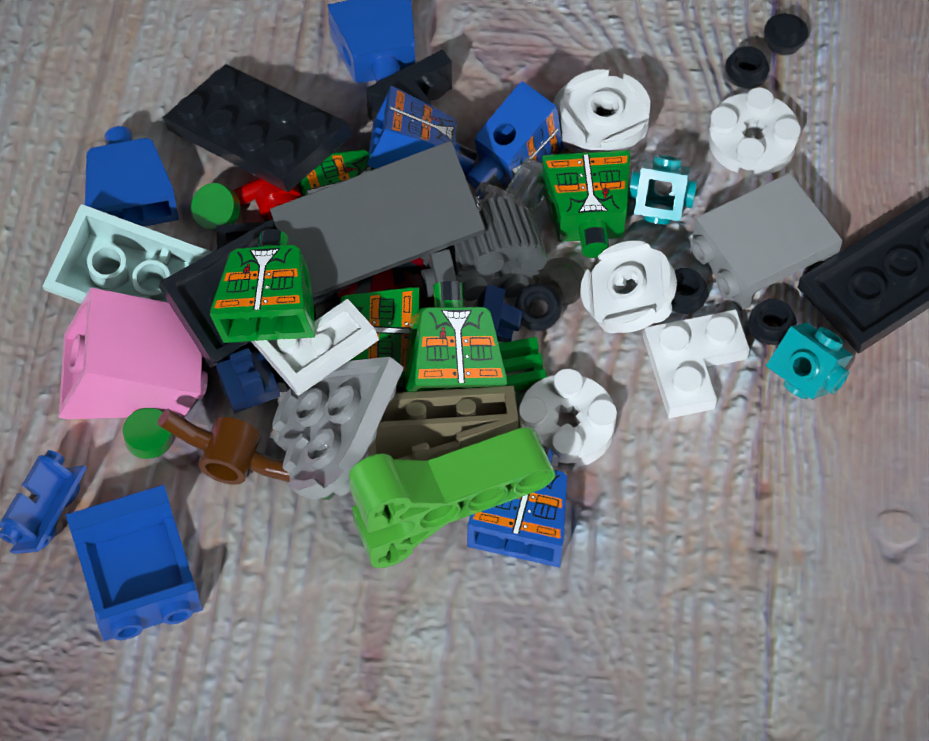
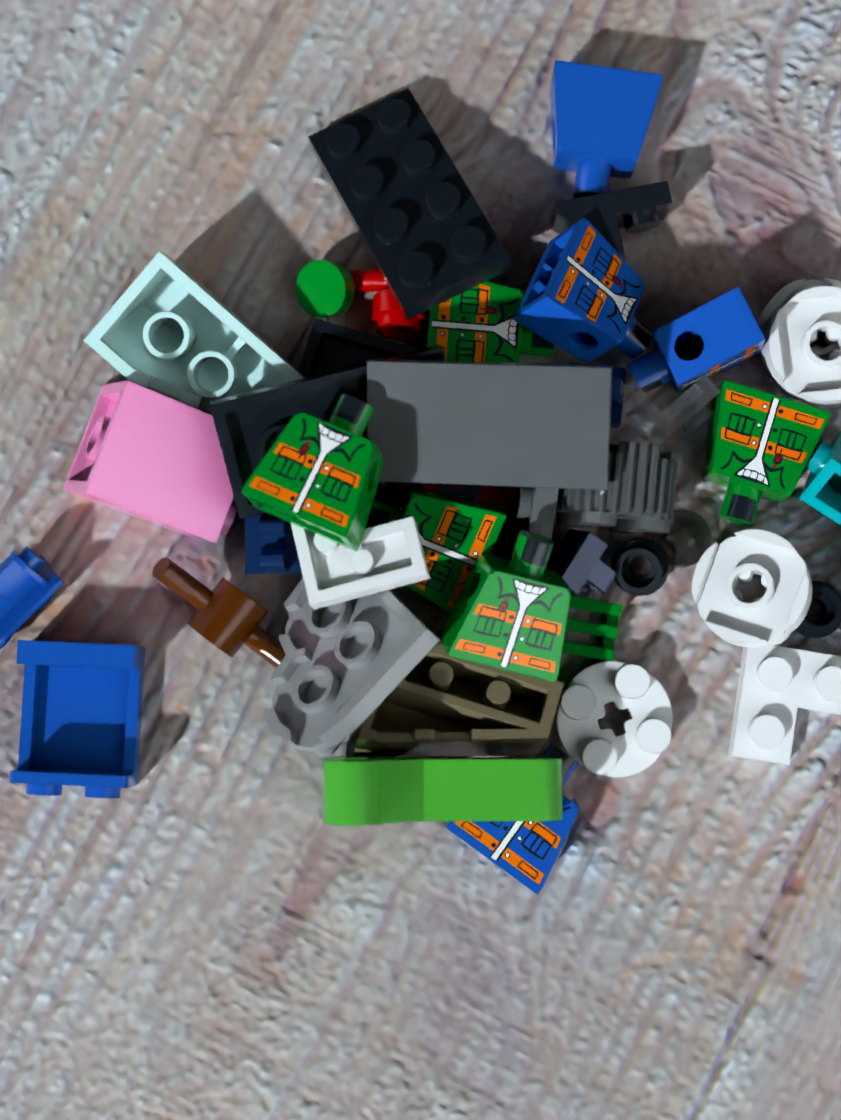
camera: 20 degrees right, 25 degrees up
(129, 180) = (233, 216): blue torso -> none
(144, 436) = (145, 547): green tile -> none

